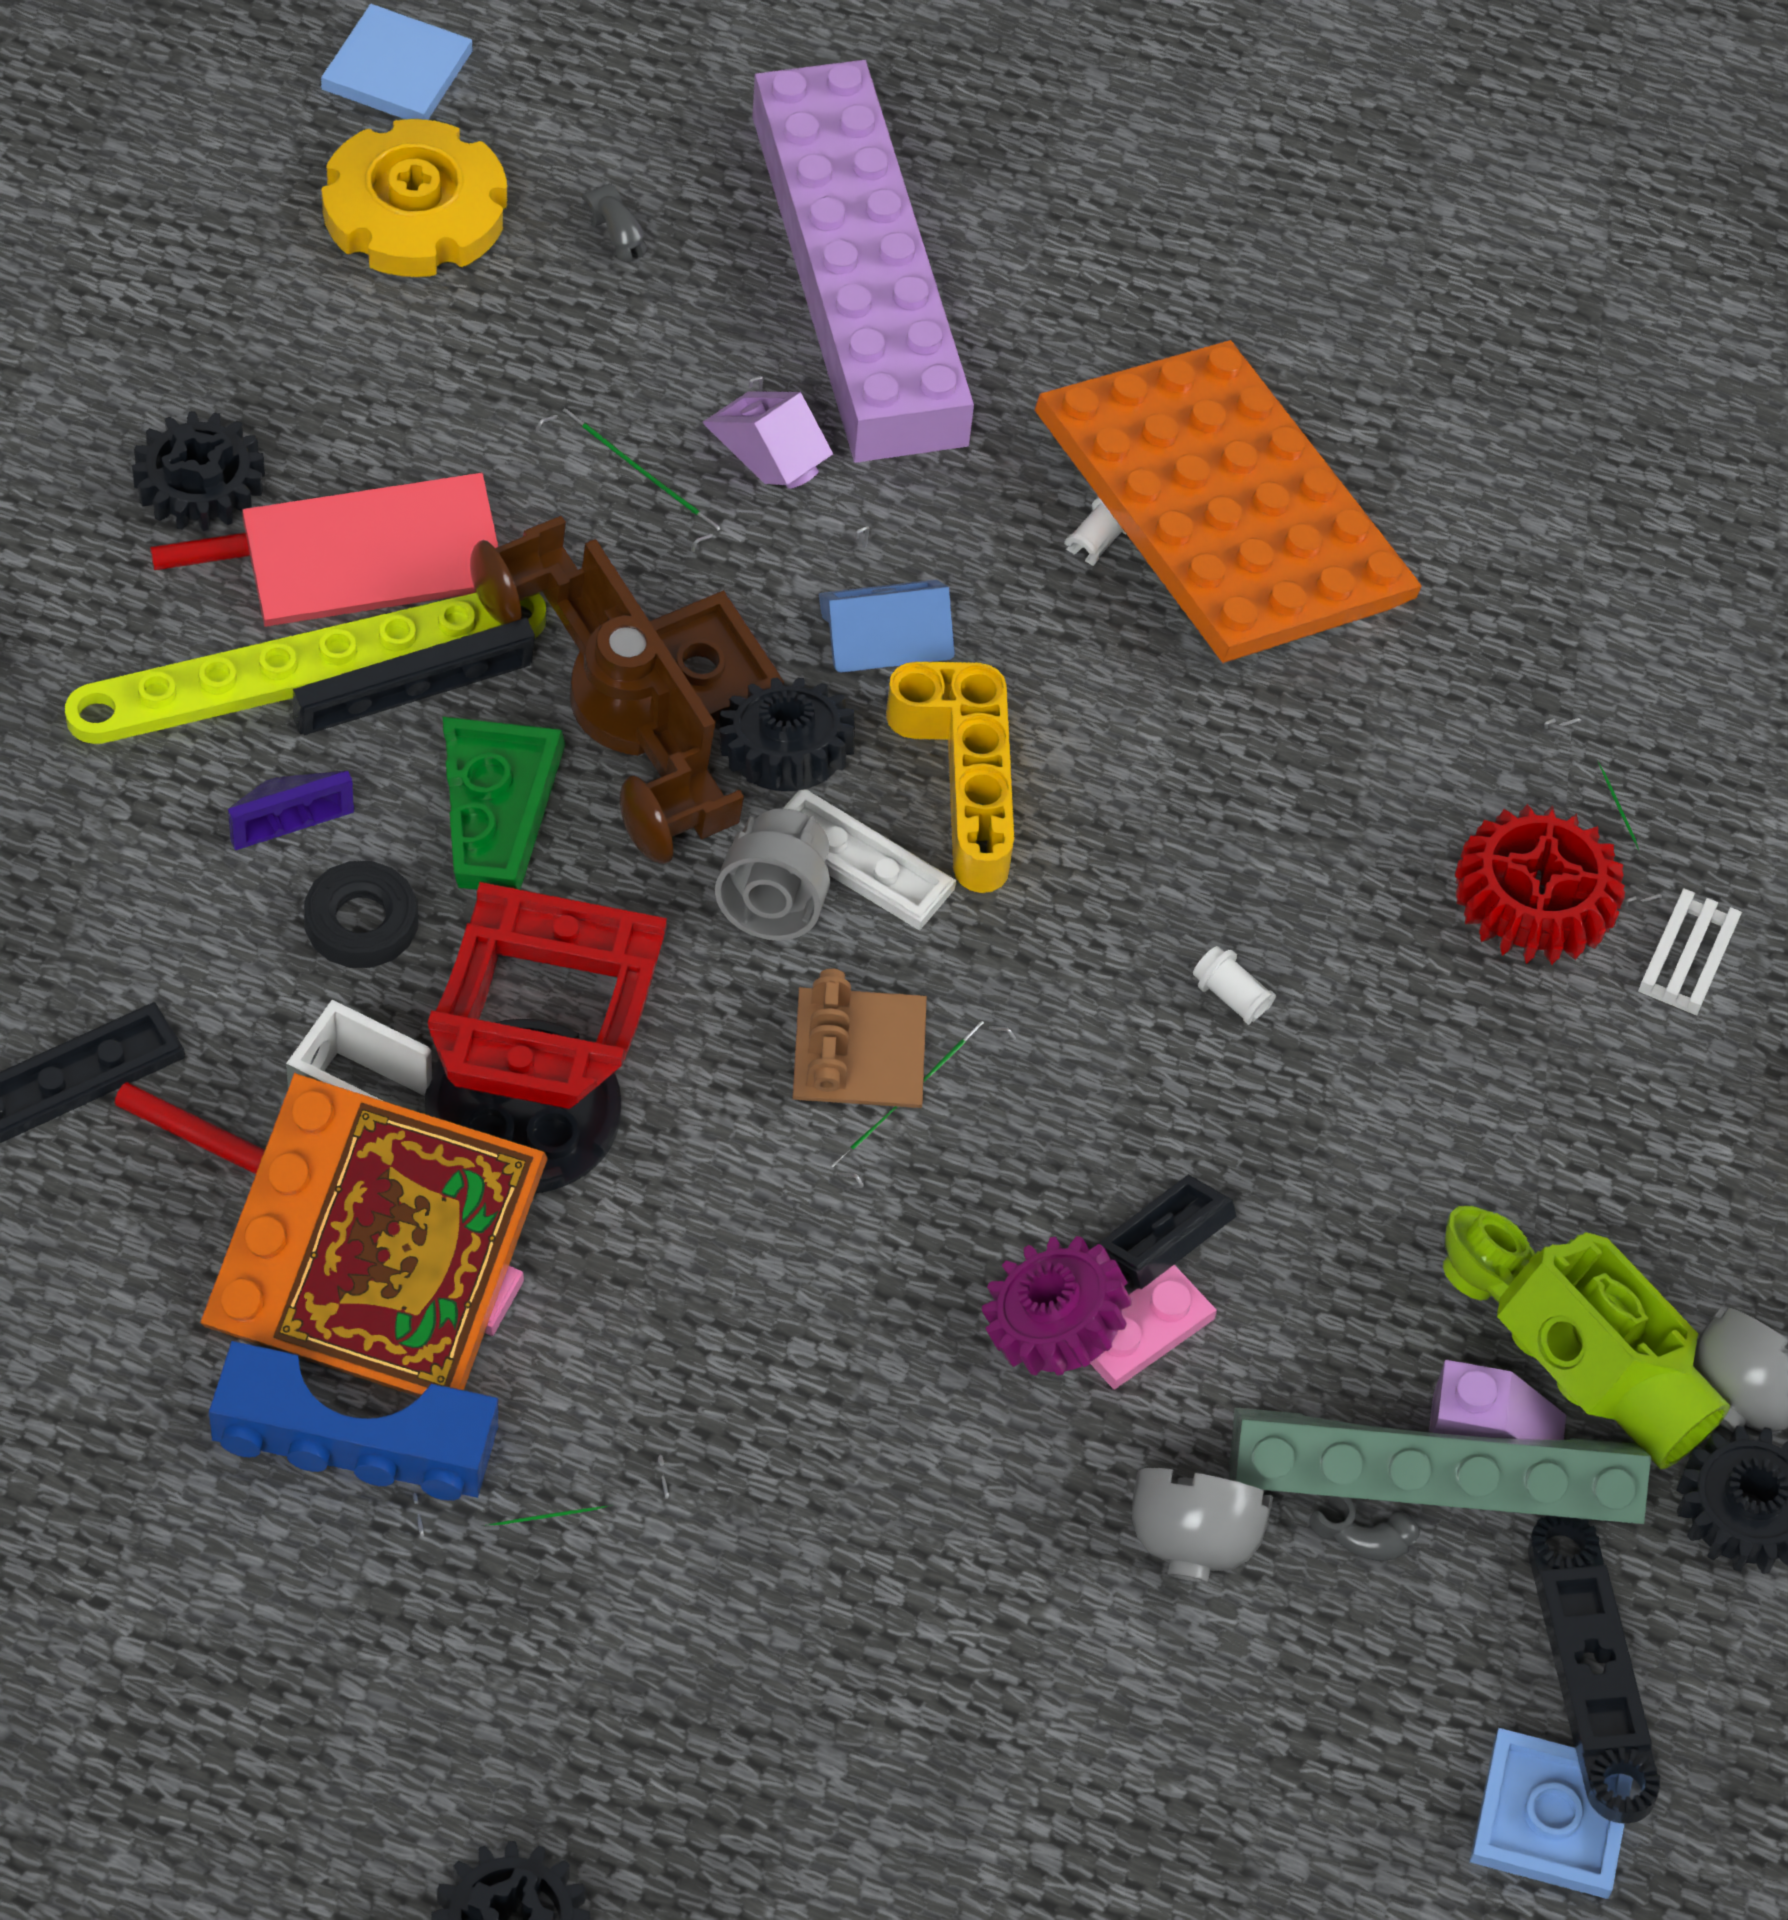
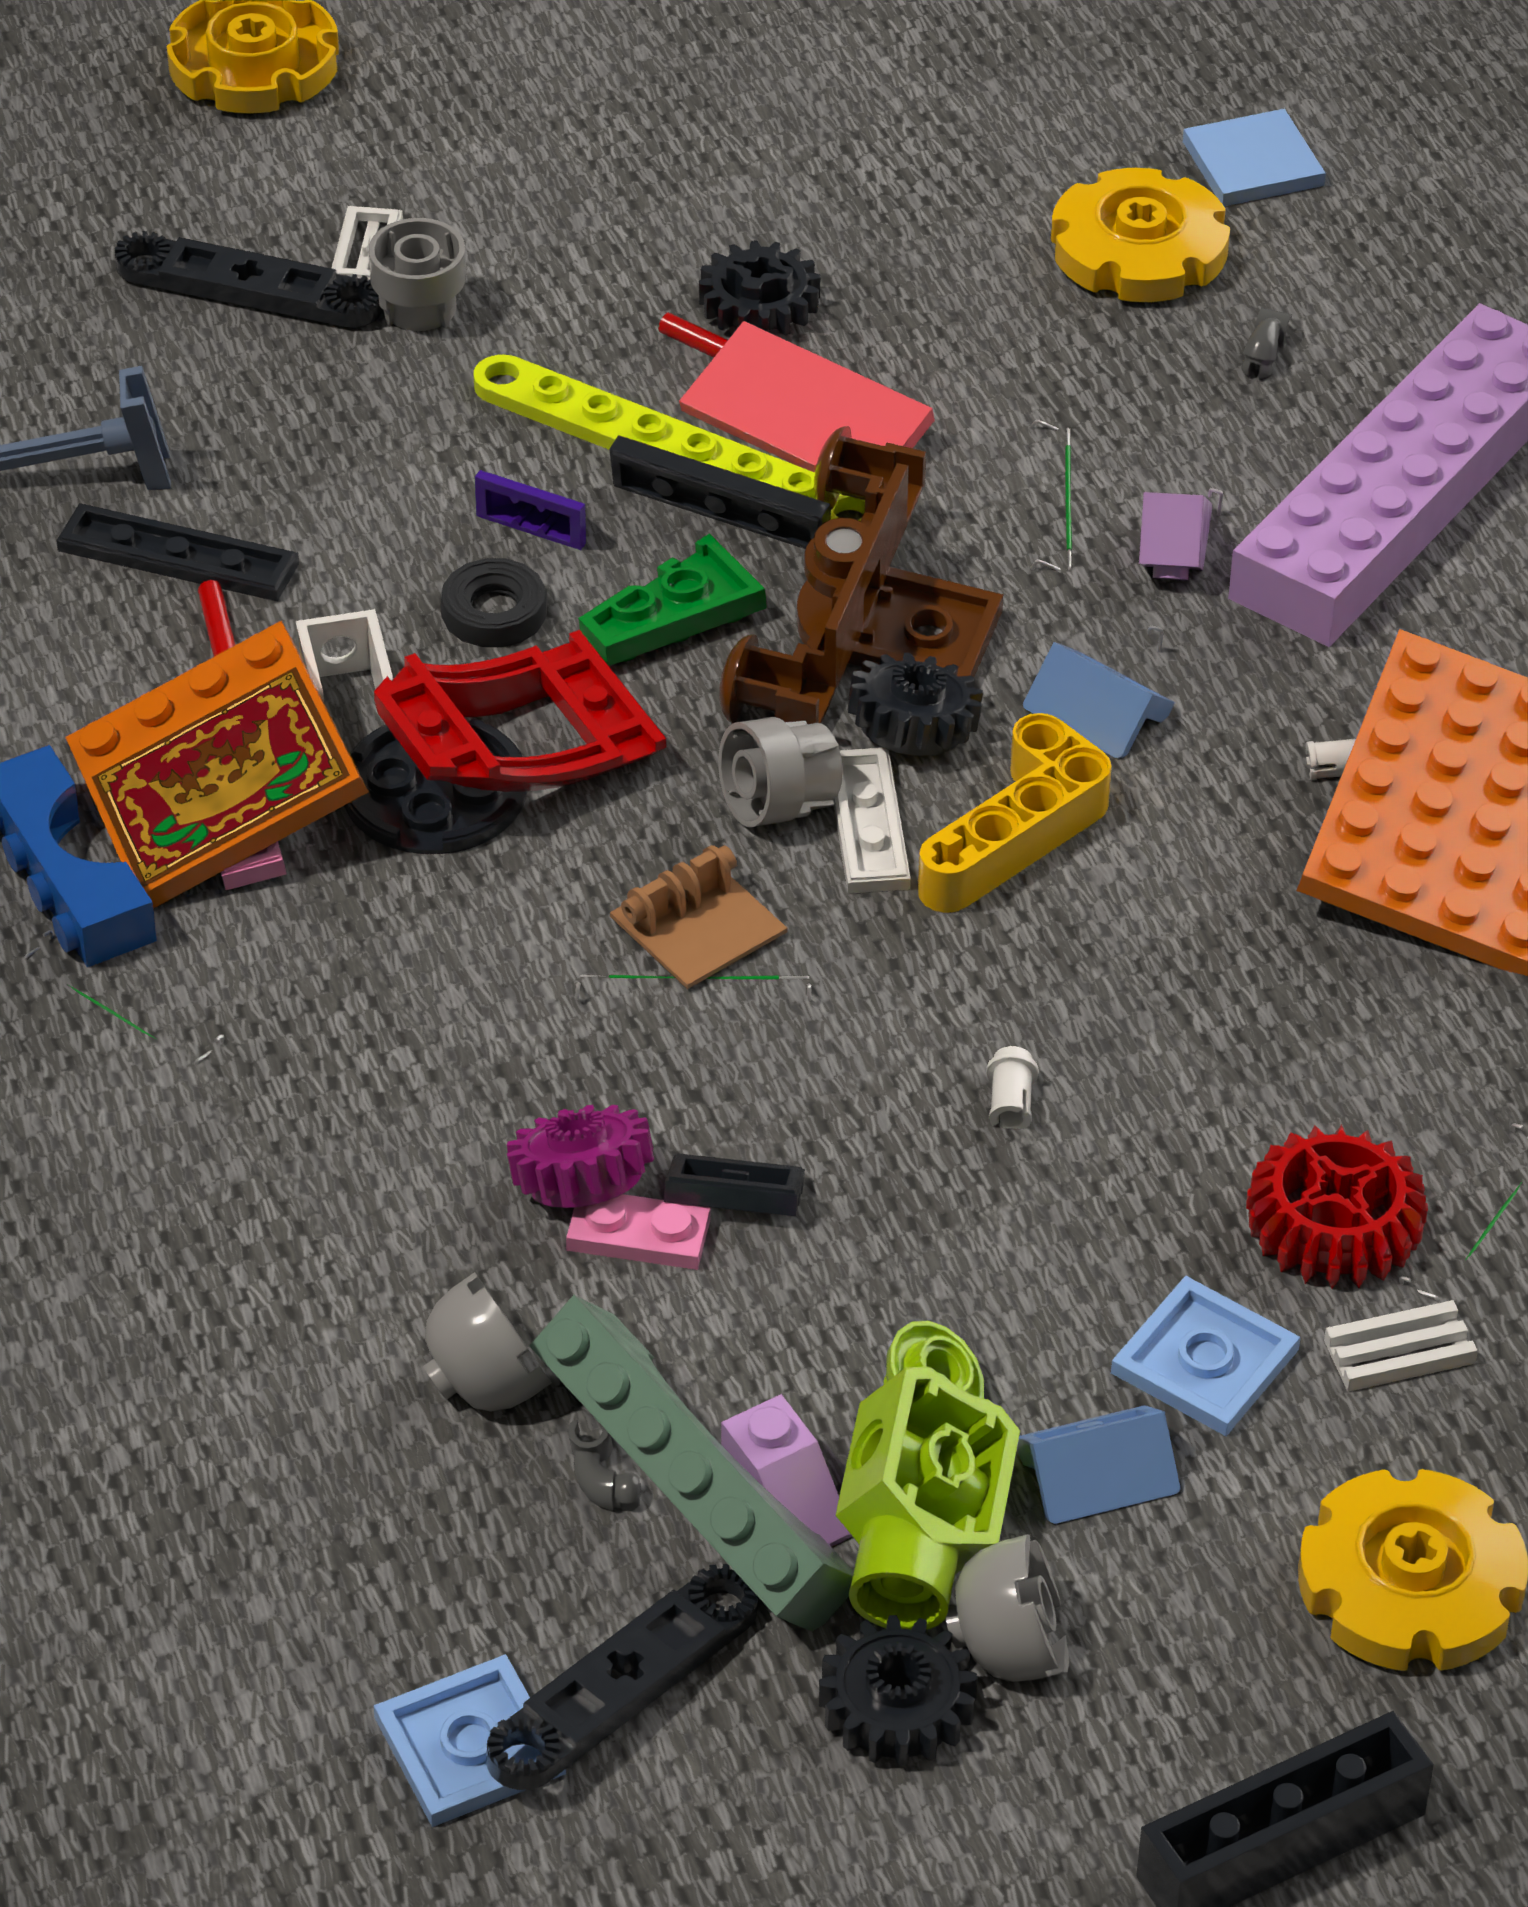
camera: 55 degrees right, 10 degrees down
(1595, 1071) = (1205, 1355): none -> light blue tile
(1642, 1204) = (1101, 1463): none -> medium blue panel

